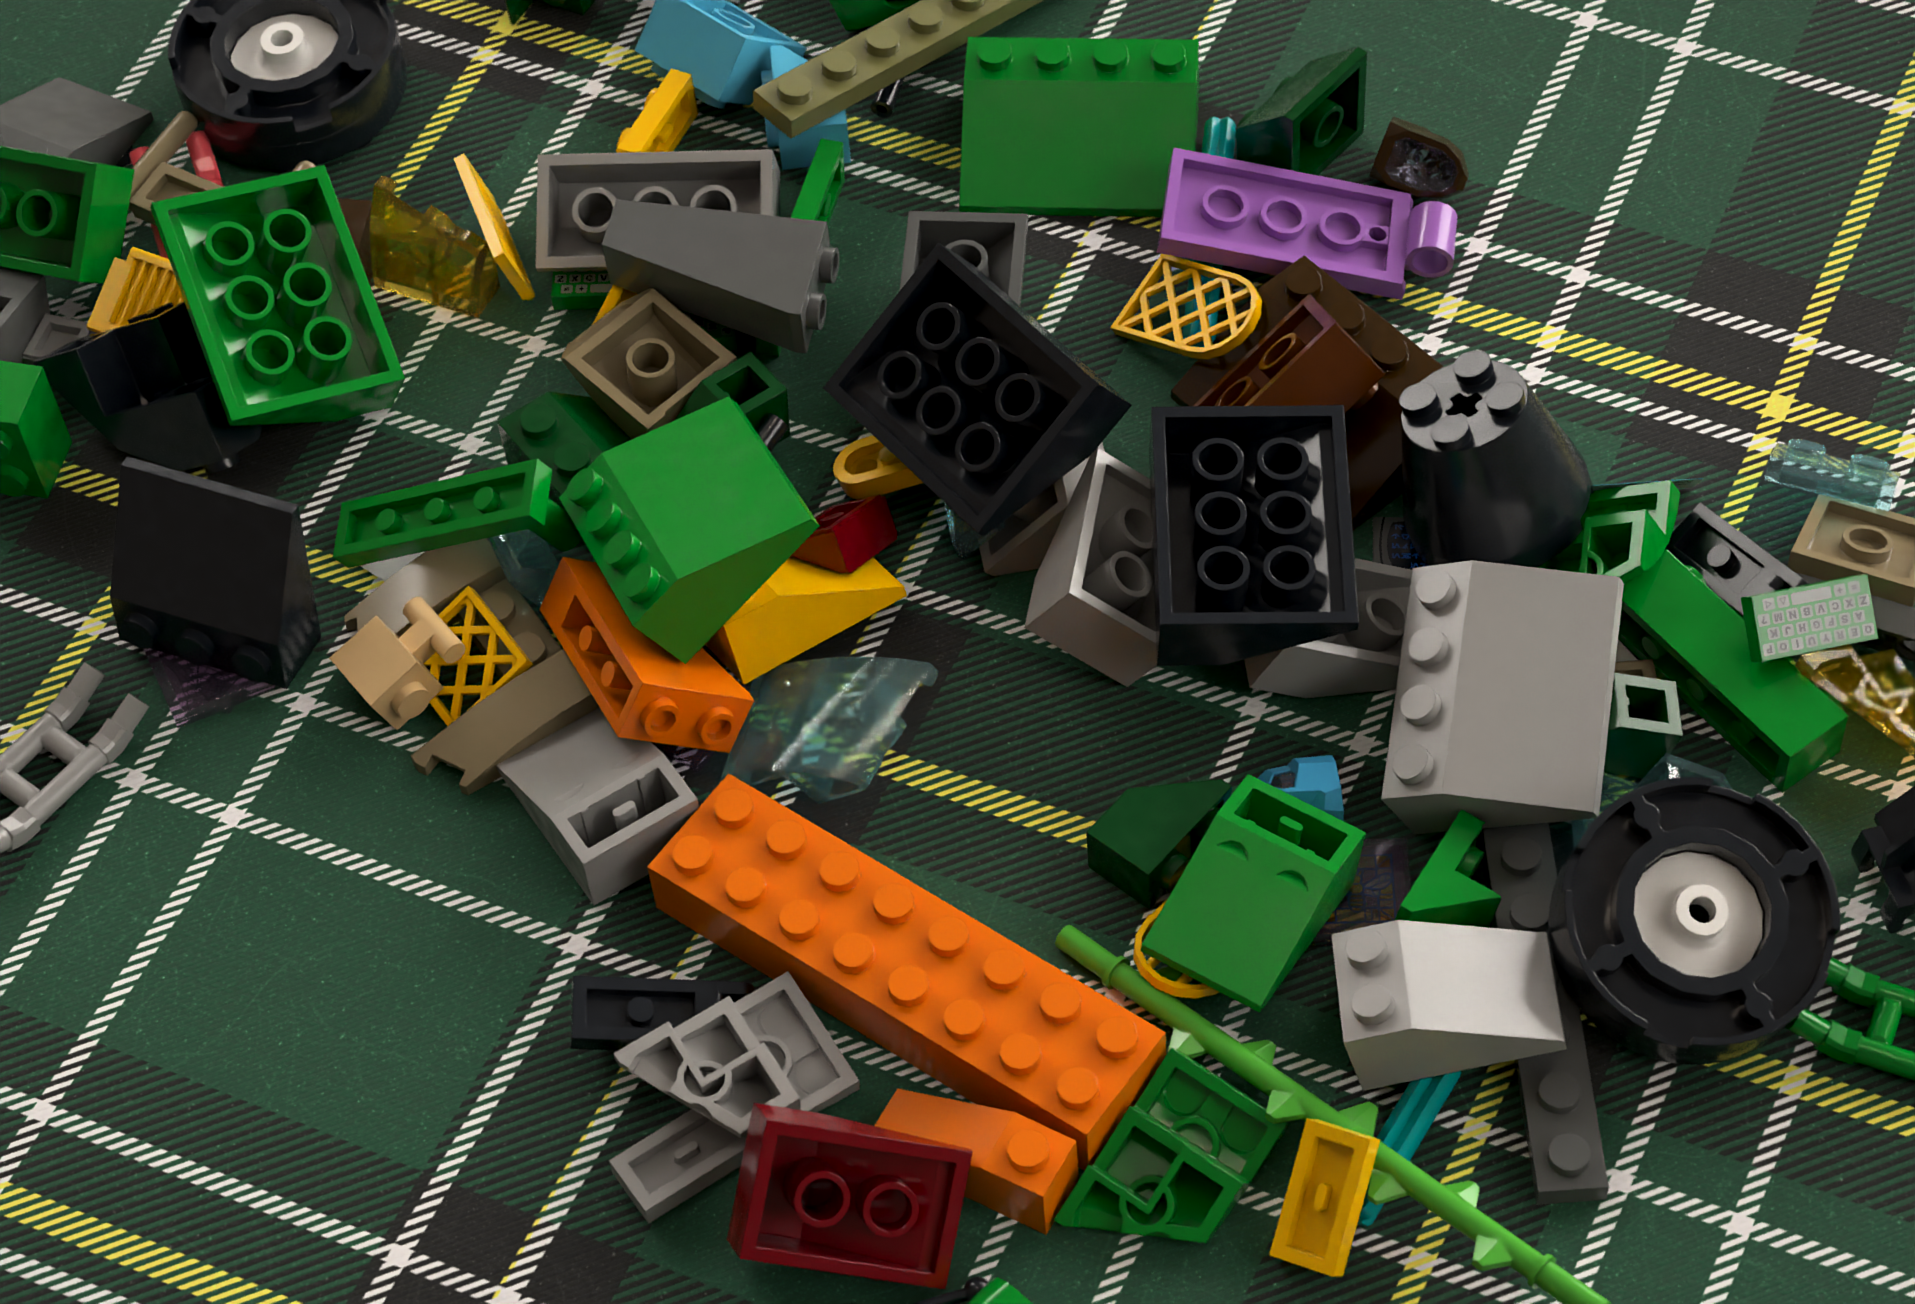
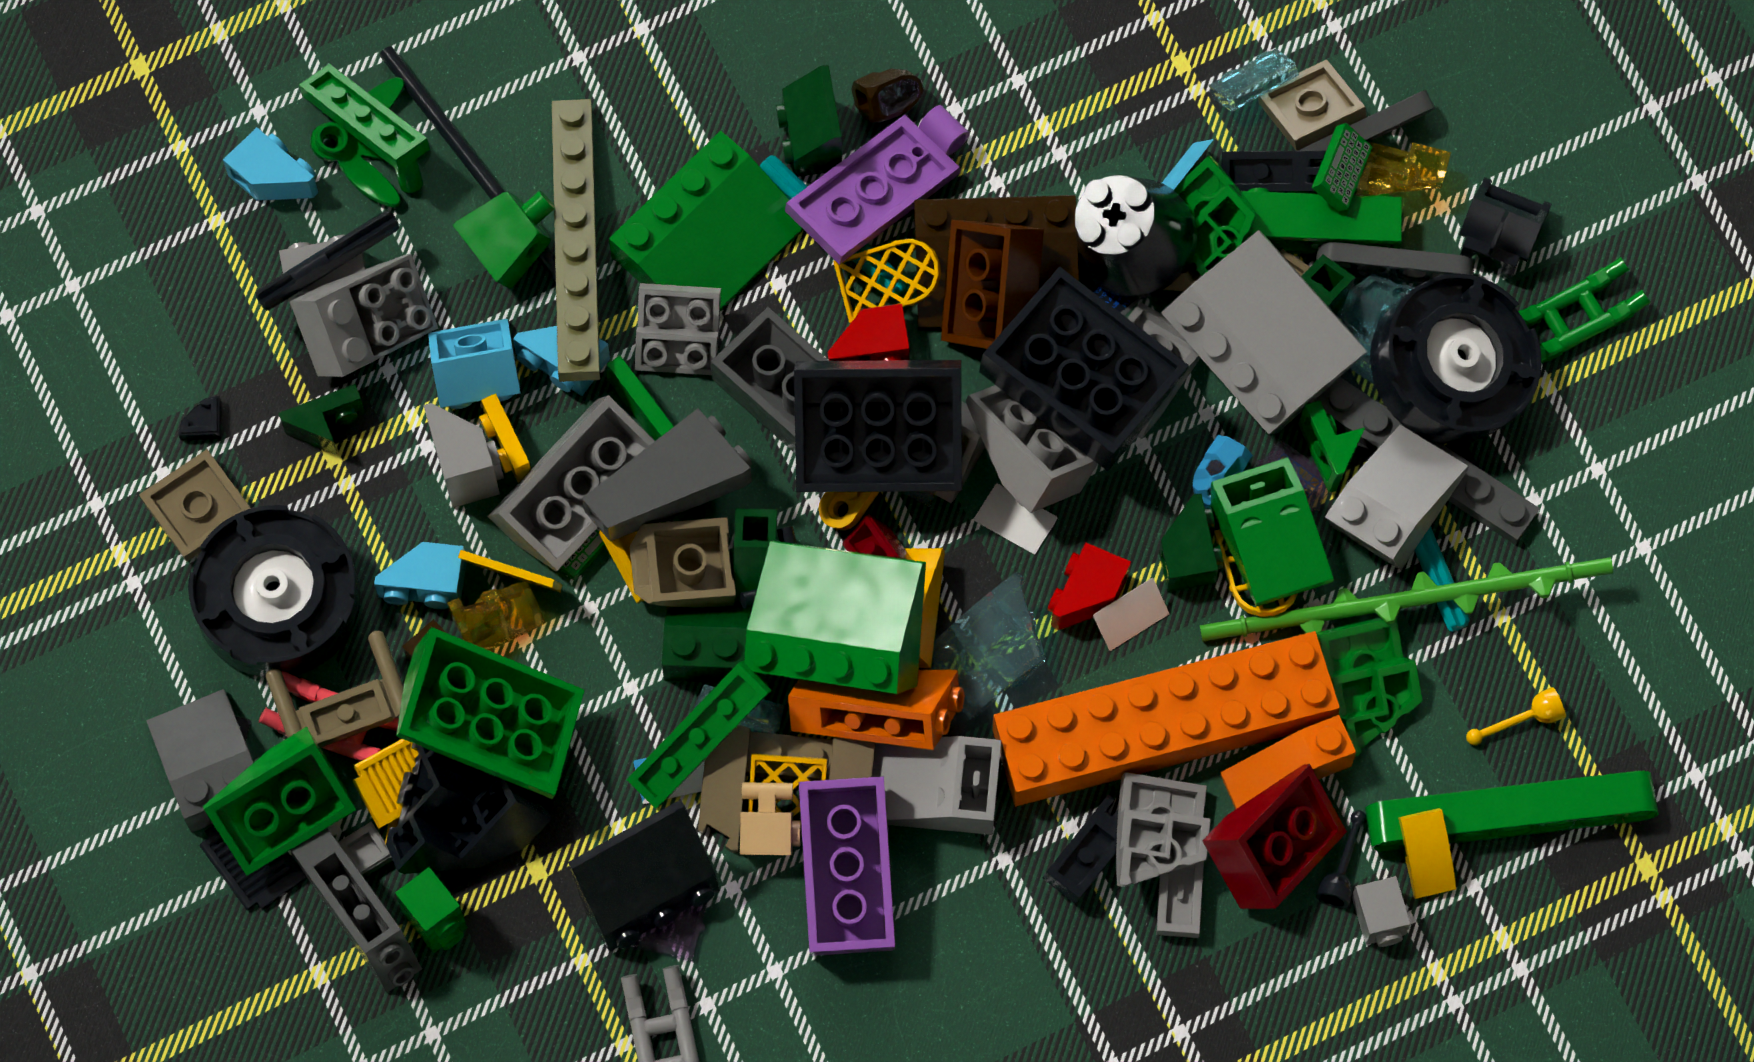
camera: 55 degrees left, 15 degrees up
(399, 765) = (846, 866): none -> medium lavender brick
(424, 167) = (424, 574): none -> medium azure slope
(579, 90) = (465, 457): none -> light grey slope
(936, 170) = (677, 328): none -> light grey slope
(1002, 772) = (1093, 583): none -> red slope
(1012, 840) = (1131, 614): none -> white sticker
(1023, 659) = (1014, 522): none -> white sticker
(1114, 345) = (873, 336): none -> red slope
(1324, 1197) = (1451, 631): yellow plate -> none
(1728, 747) = (1394, 263): none -> dark grey beam

